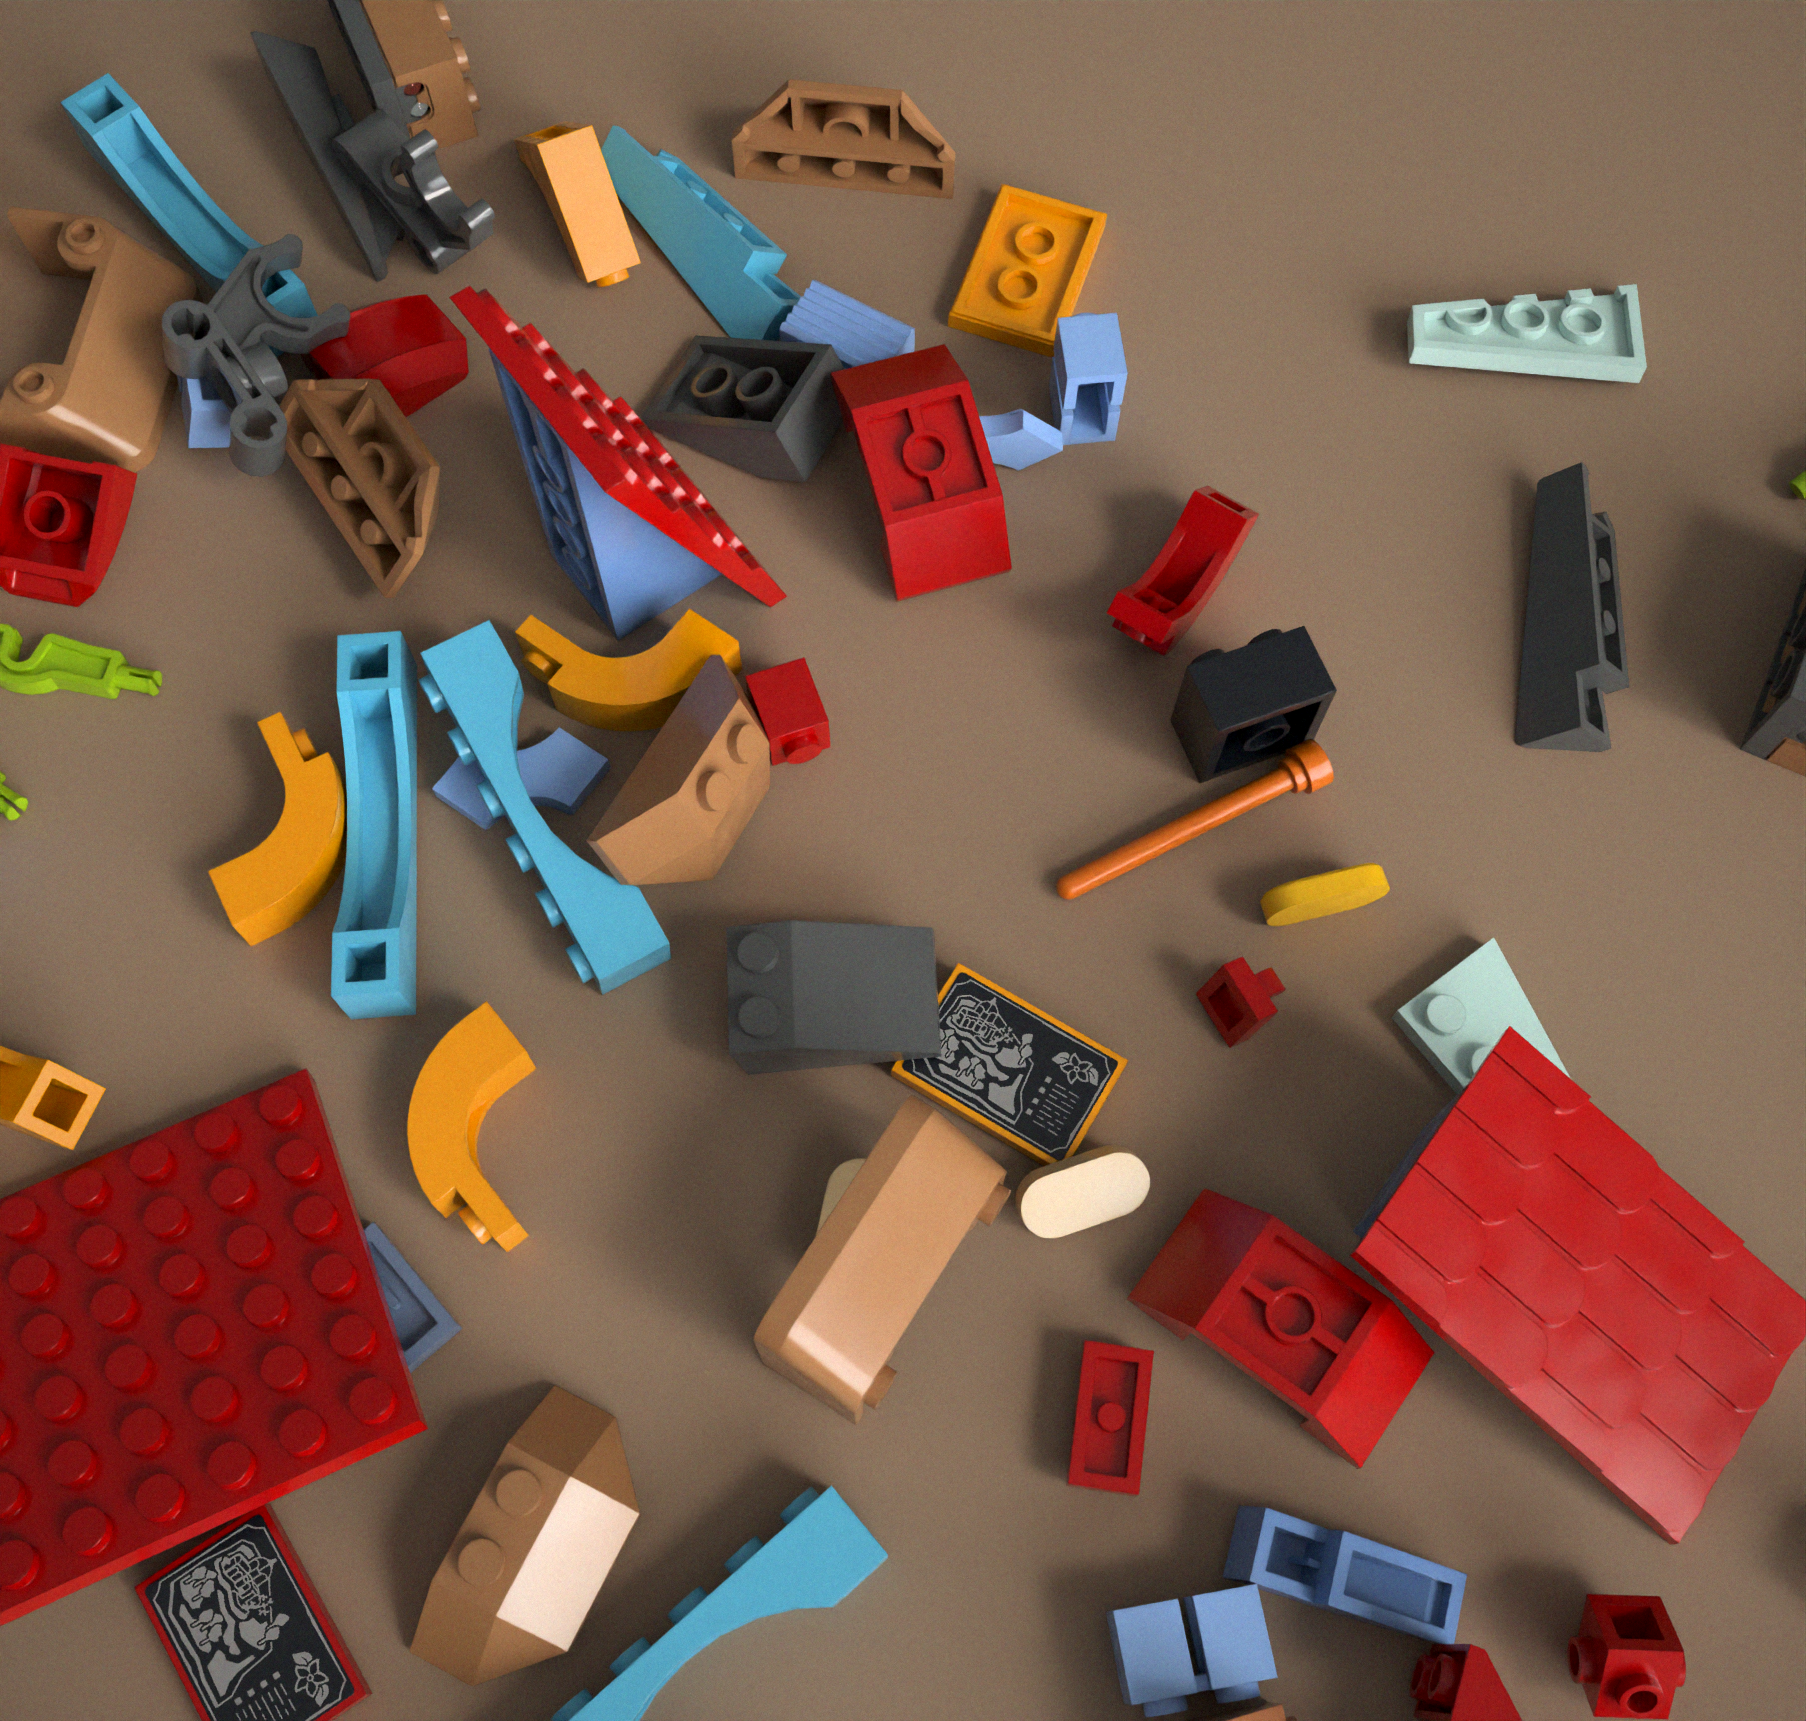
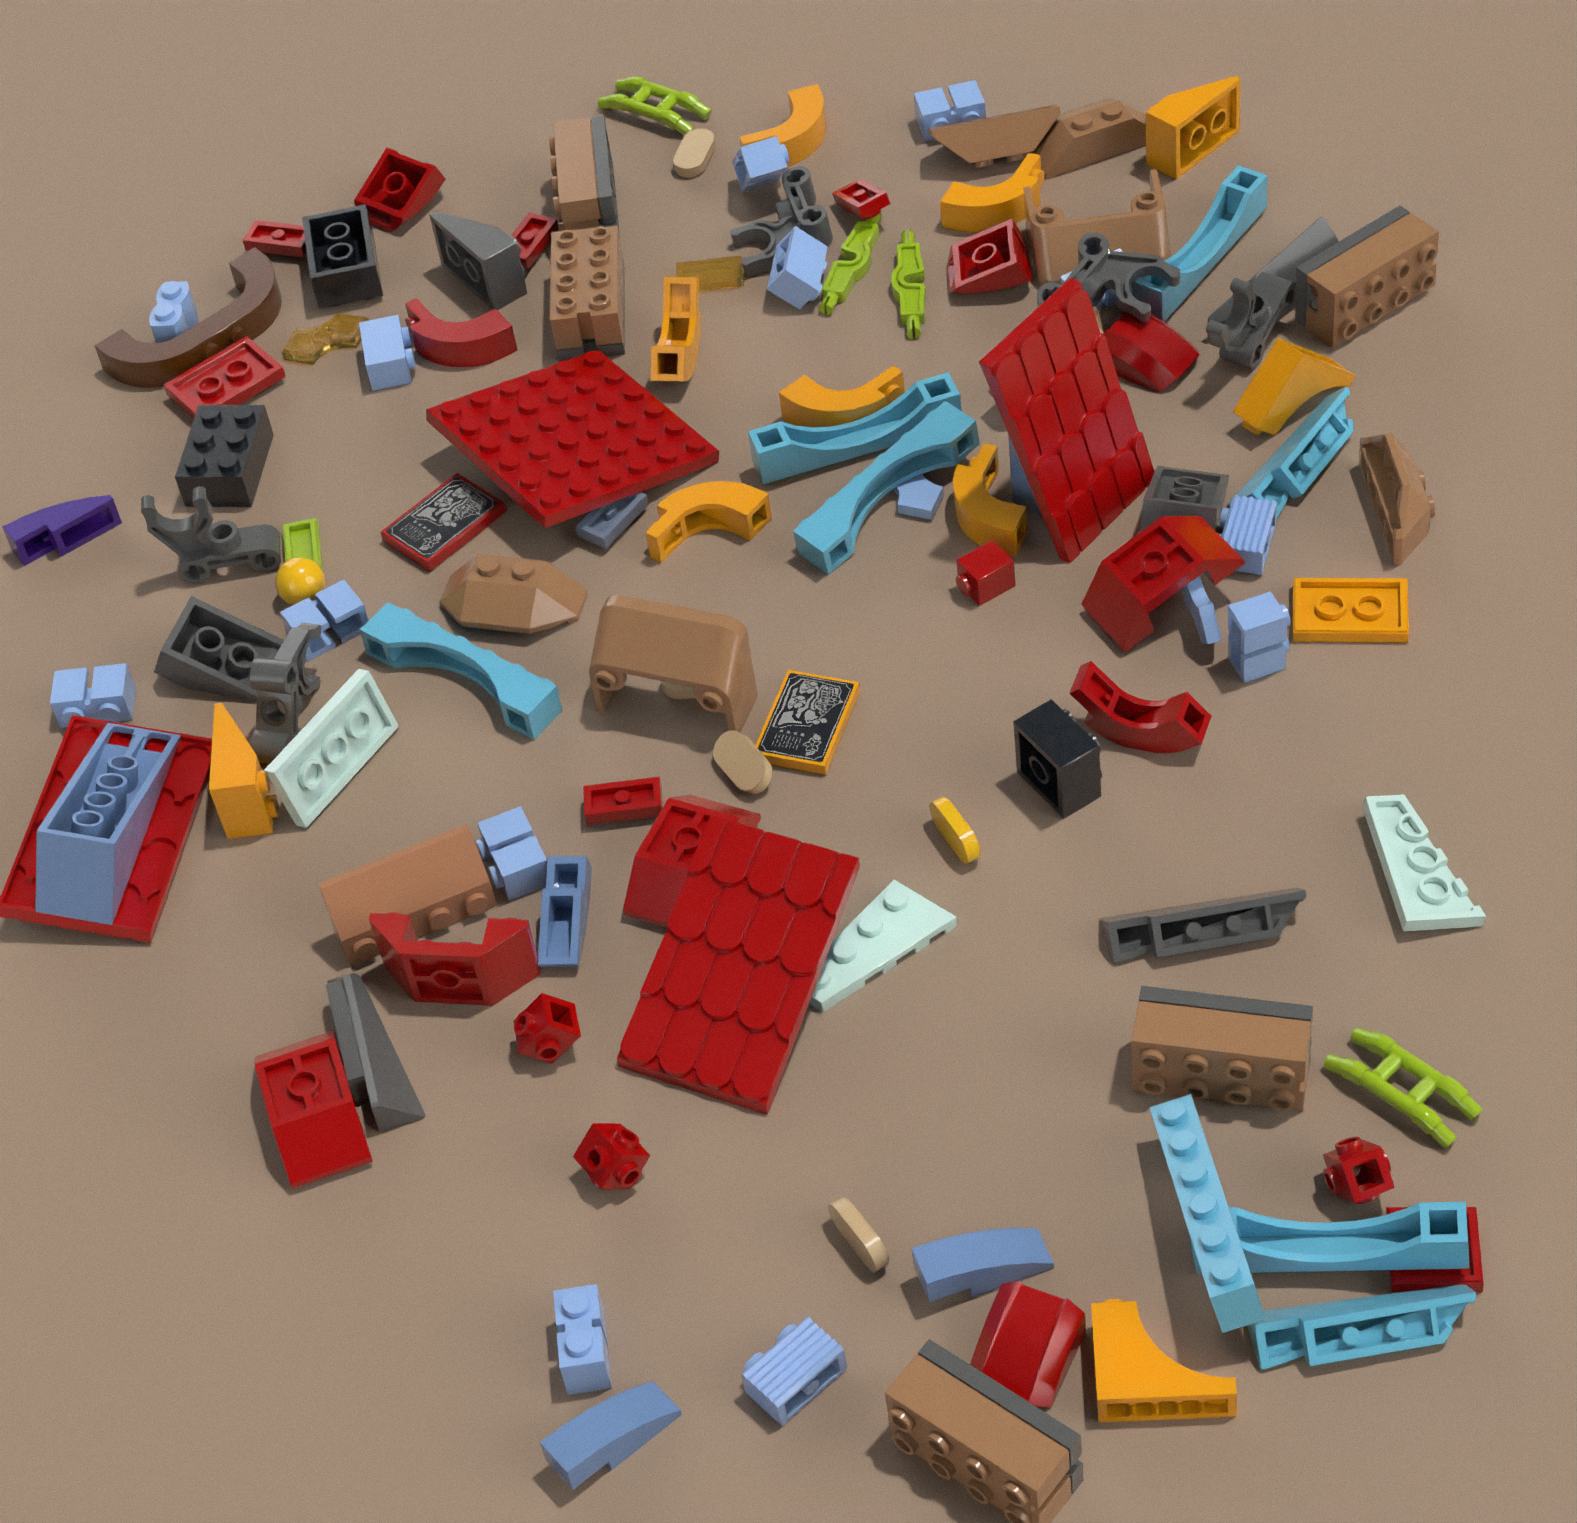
camera: 85 degrees right, 20 degrees down
(689, 788) = (914, 535): medium nougat wedge -> none
(830, 995) = (818, 626): dark grey slope -> none
(1240, 1000) = (876, 805): red tile -> none
(1302, 769) = (1036, 808): orange piece -> none

